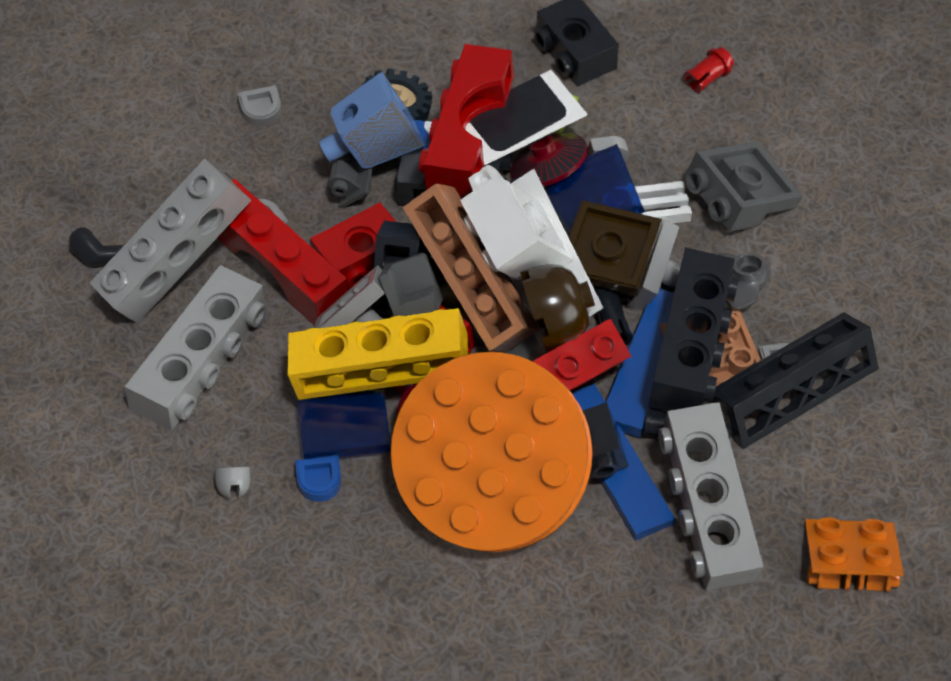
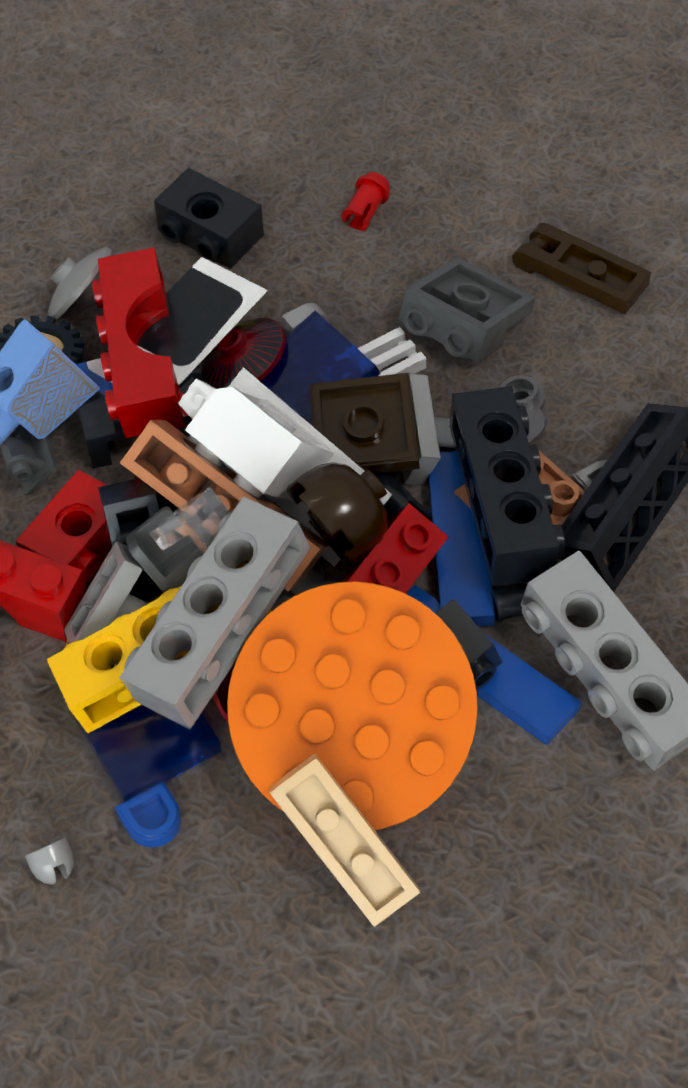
camera: 20 degrees left, 0 degrees up
(405, 362) = (215, 639): none -> light grey brick
(441, 545) = (344, 839): none -> tan plate
(443, 278) = (196, 518): none -> clear panel
(445, 51) = (73, 279): none -> light grey dish
(854, 186) = (582, 267): none -> dark brown plate

